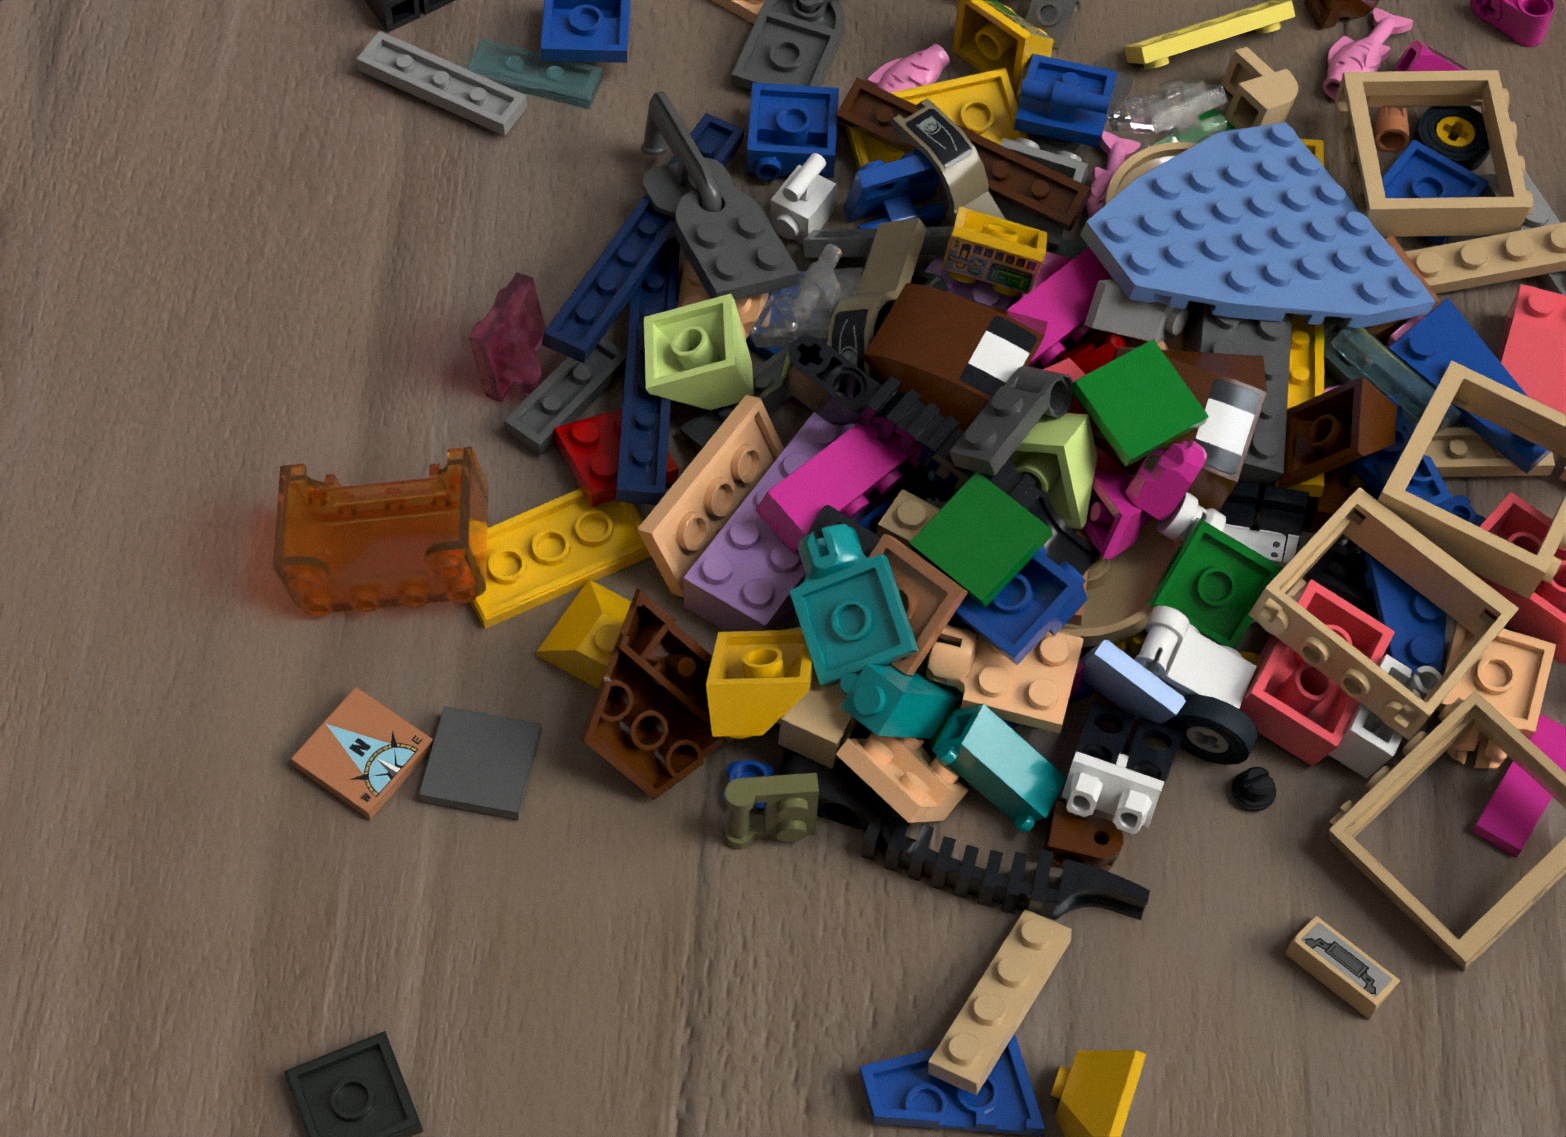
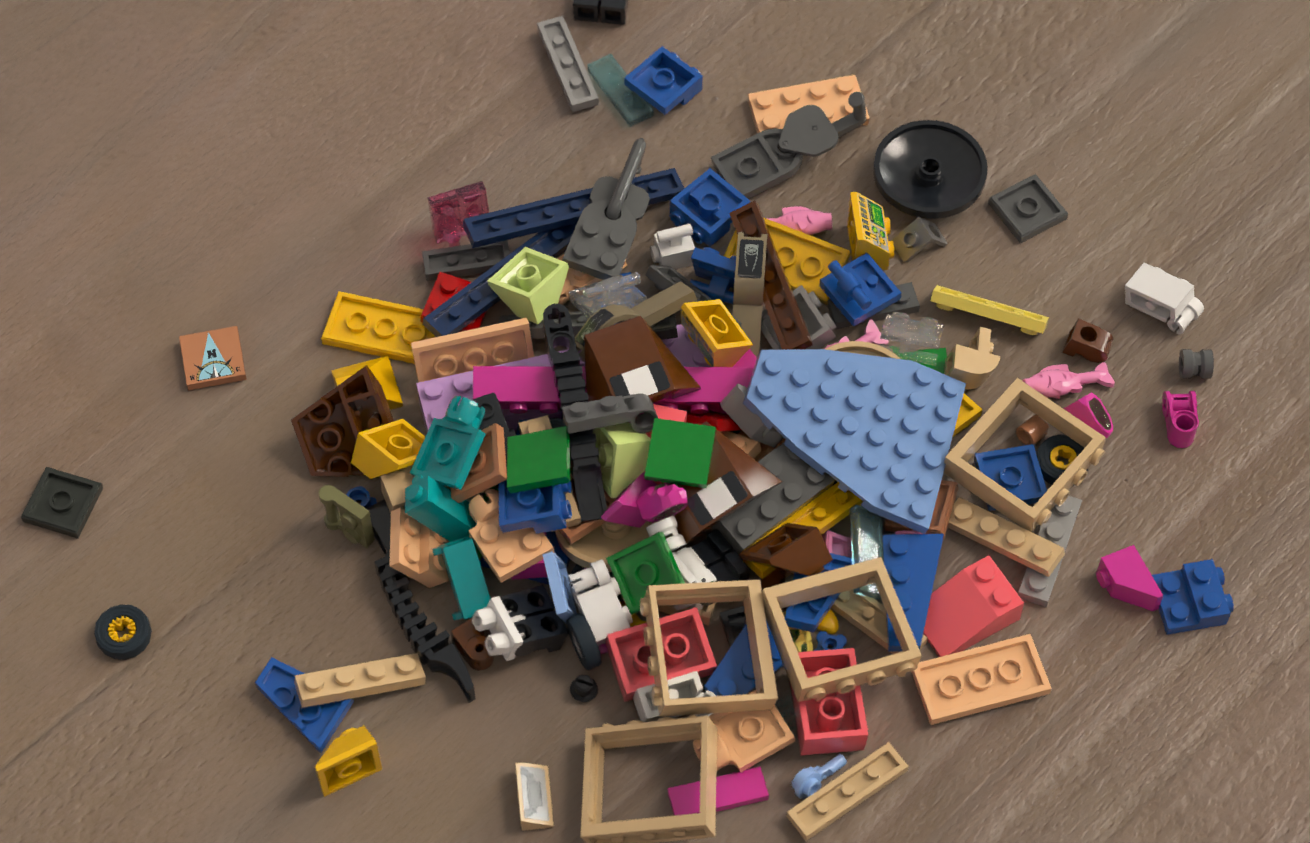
camera: 45 degrees right, 0 degrees up
(383, 540) = (306, 264): clear orange windscreen -> none
(480, 763) = (256, 401): dark grey tile -> none

